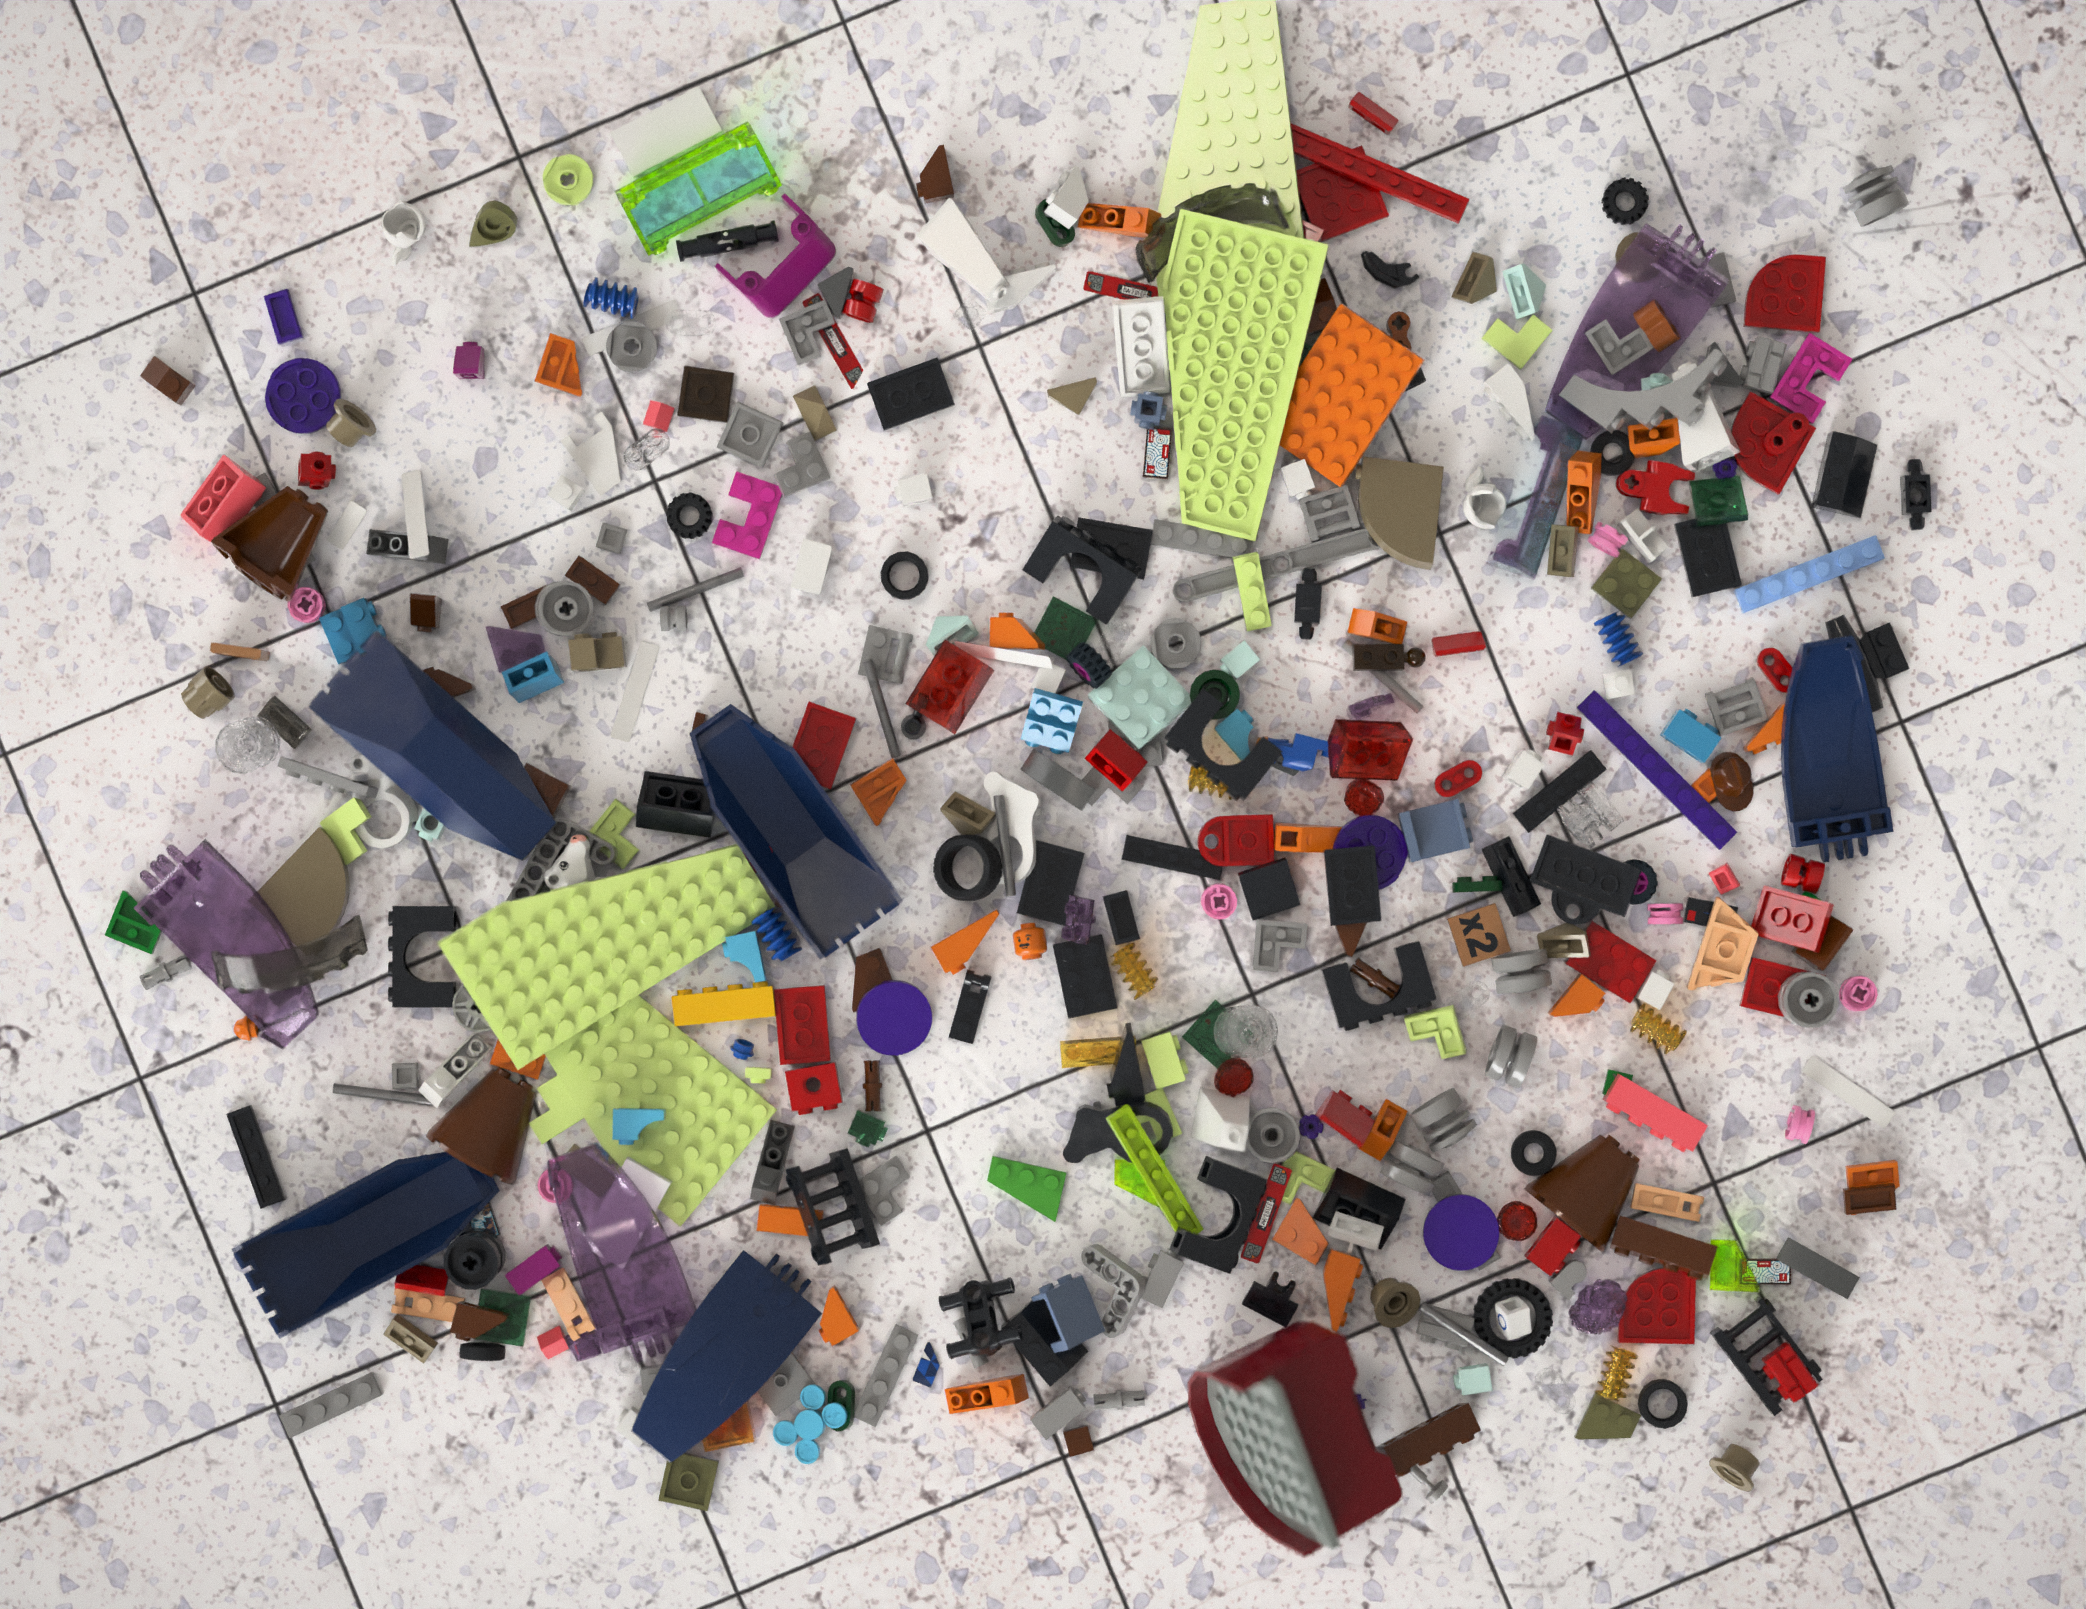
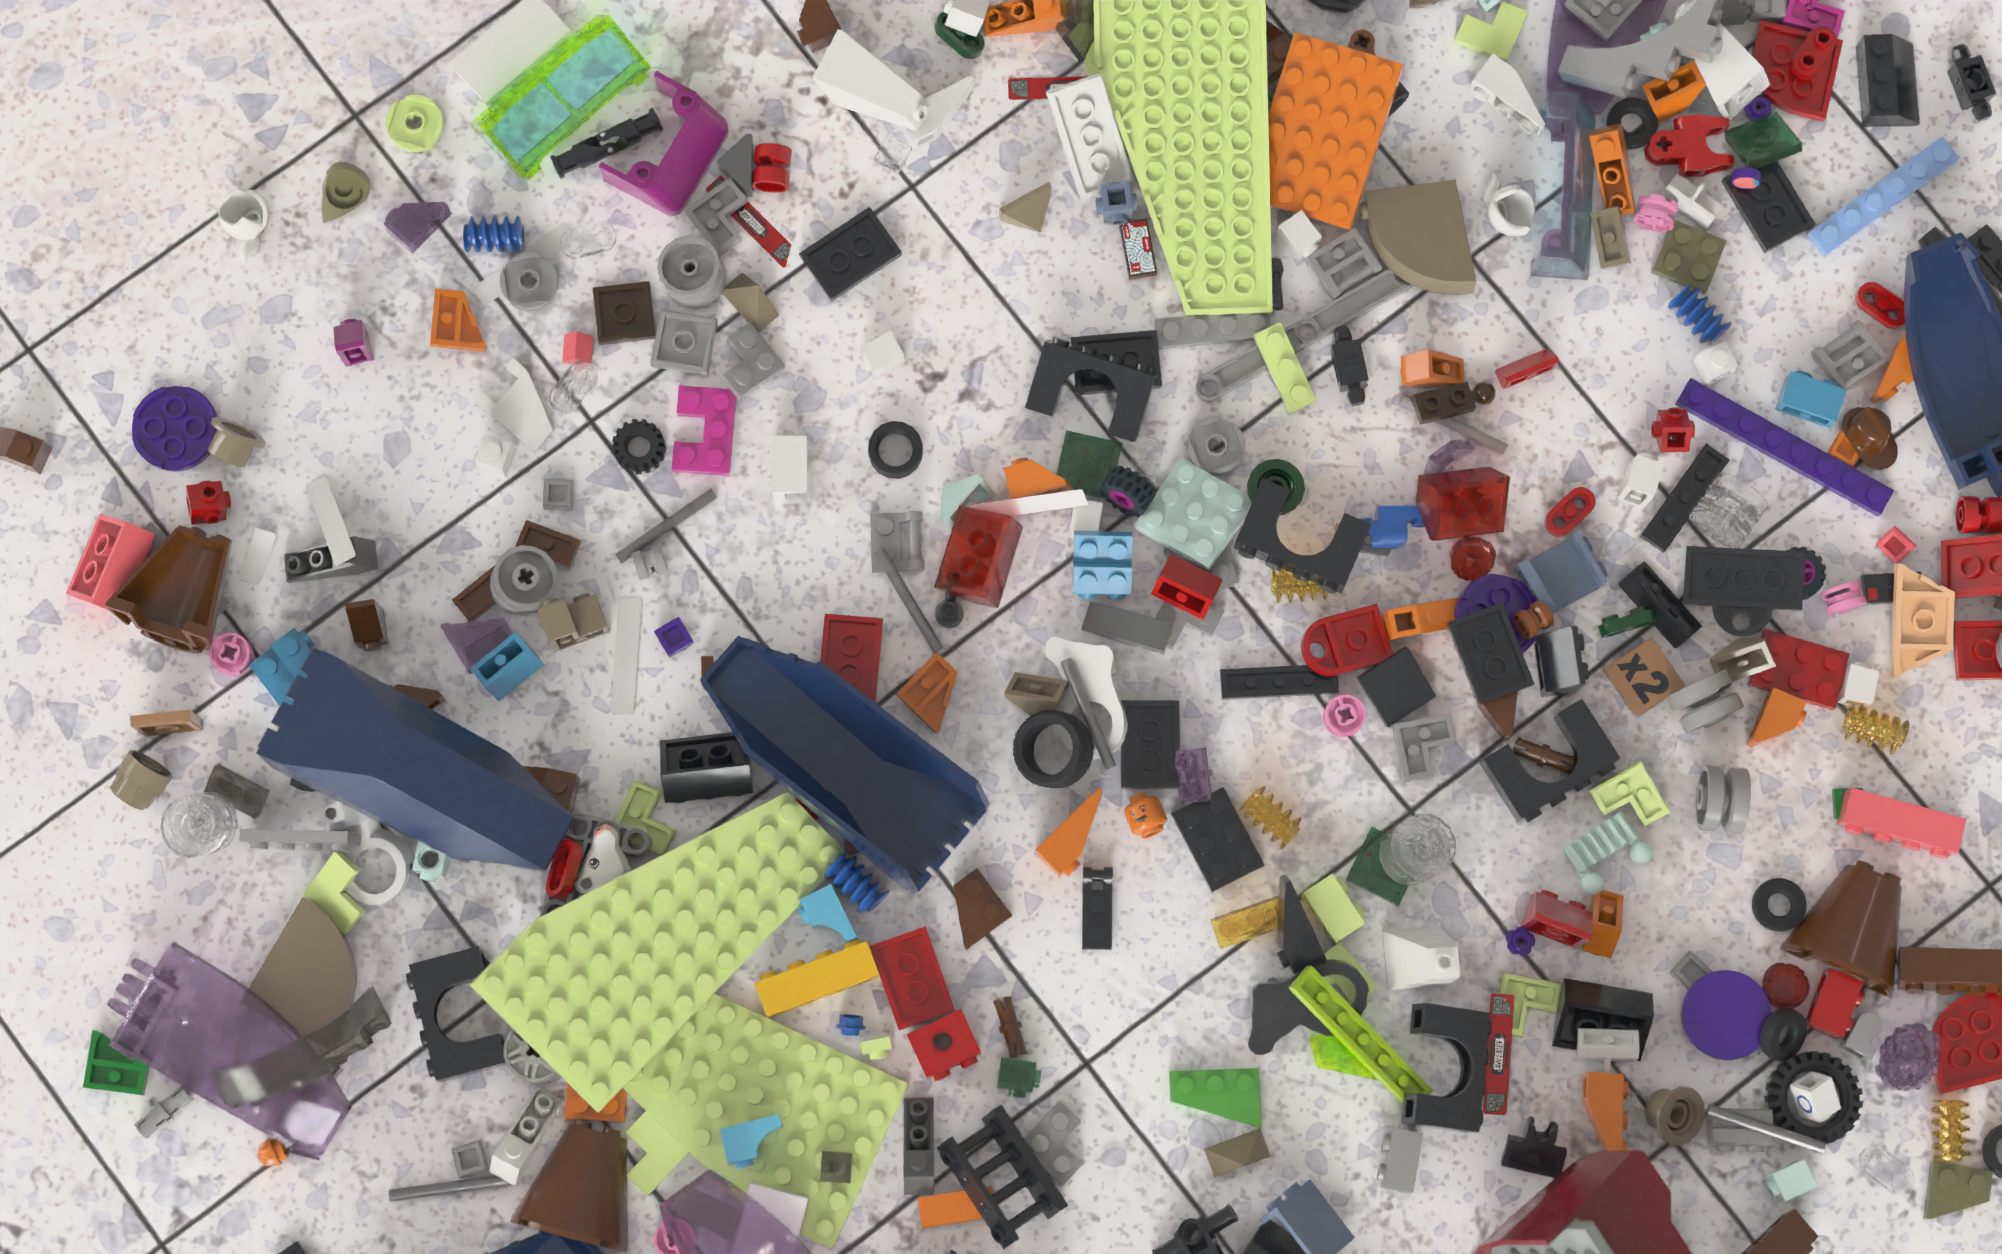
camera: 15 degrees left, 10 degrees down
(283, 316) = (133, 348): dark purple tile -> none
(538, 863) = (564, 869): none -> red plate
(547, 269) = (416, 222): none -> clear purple slope
(678, 687) = (673, 637): none -> dark purple plate
(700, 1163) = (836, 1167): none -> clear smoke tile
(781, 387) = (691, 271): none -> light grey wheel
(894, 1017) = (1014, 942): dark purple tile -> none
(1030, 1236) = (1237, 1152): none -> dark tan slope
(1121, 917) = (1239, 762): black panel -> none
(1121, 1283) = (1360, 1177): light grey beam -> none
(1233, 1077) = (1418, 907): clear red hair -> none
(1235, 732) = (1309, 524): medium azure arch -> none
(1239, 660) = (1292, 444): light aqua brick -> none
(1264, 523) = (1277, 295): none -> black bar
(1273, 1120) = (1495, 949): light grey wheel -> none
(1301, 1234) = (1546, 1066): orange wing -> none
(1398, 864) = (1531, 620): none -> dark orange wheel
(1401, 1064) = (1602, 843): none -> light aqua gear
(1410, 905) = (1560, 662): none -> black slope
(1412, 1167) = (1650, 954): light grey wheel -> none
(1443, 1120) = (1669, 891): light grey wheel -> none
(1498, 1251) = (1772, 1029): none -> black tyre
(1666, 1202) = (1944, 920): light nougat plate -> none
(1693, 531) = (1746, 178): none -> dark purple tile

